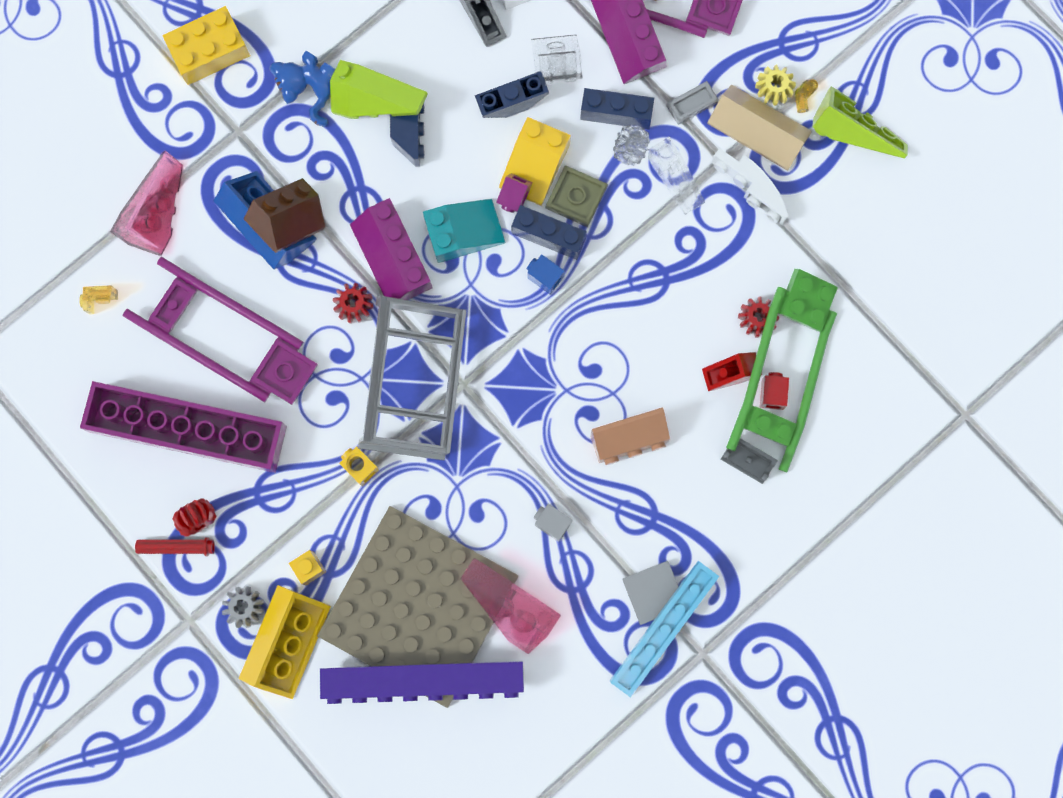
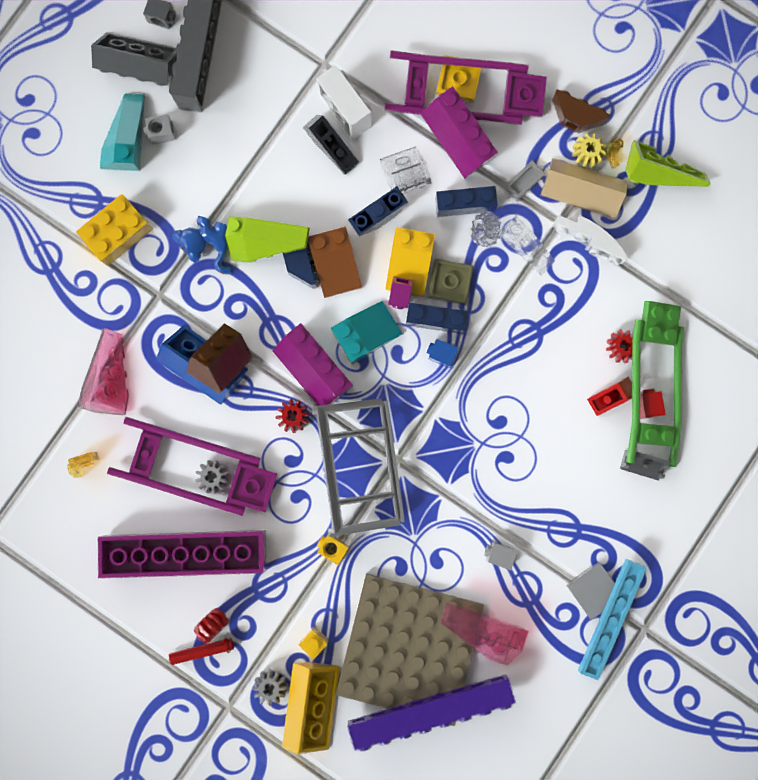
camera: 15 degrees left, 5 degrees up
(247, 354) = (207, 472): none -> light grey gear
(448, 141) = (334, 262): none -> dark orange slope
(630, 436) = (546, 471): nougat slope -> none
(773, 41) = (577, 113): none -> reddish brown slope

